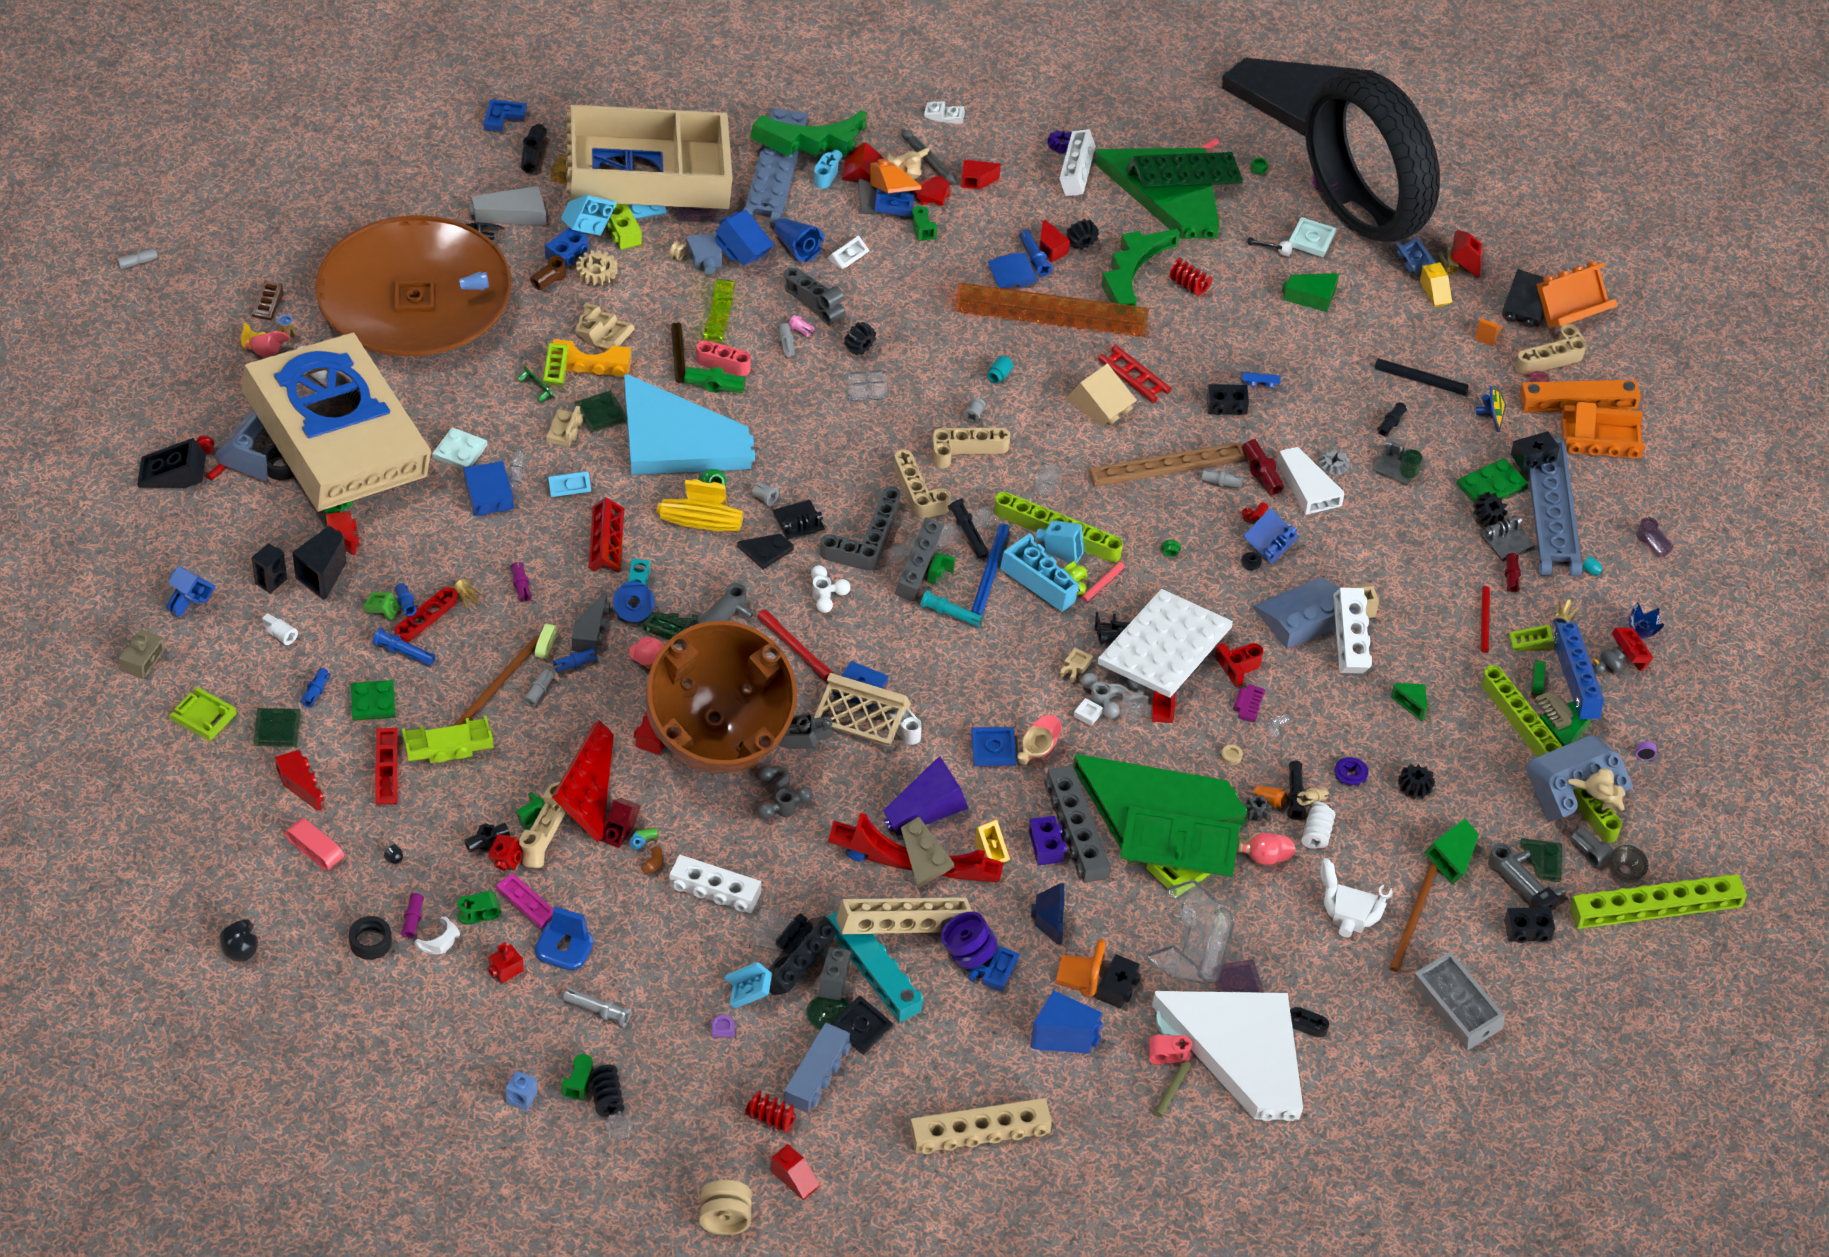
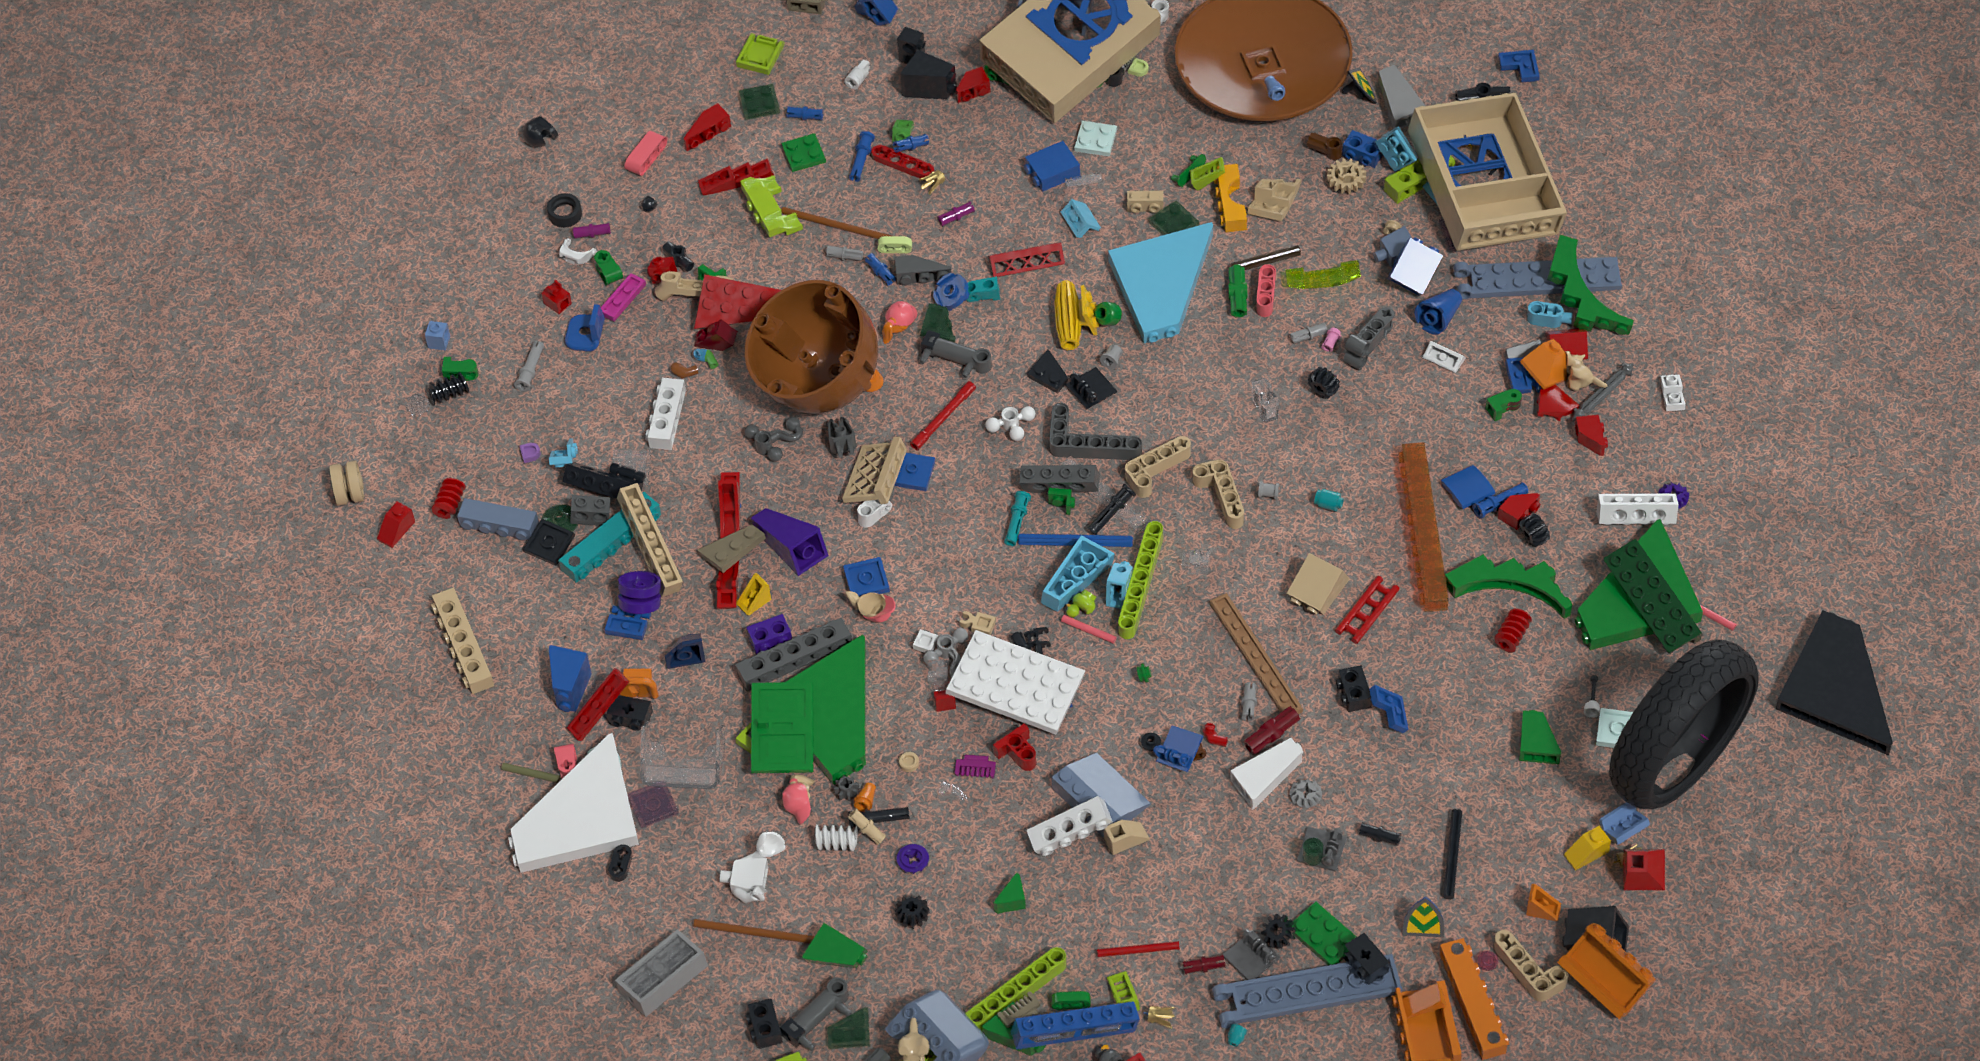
camera: 85 degrees right, 5 degrees up
(1113, 999) = (598, 704): none -> red tile

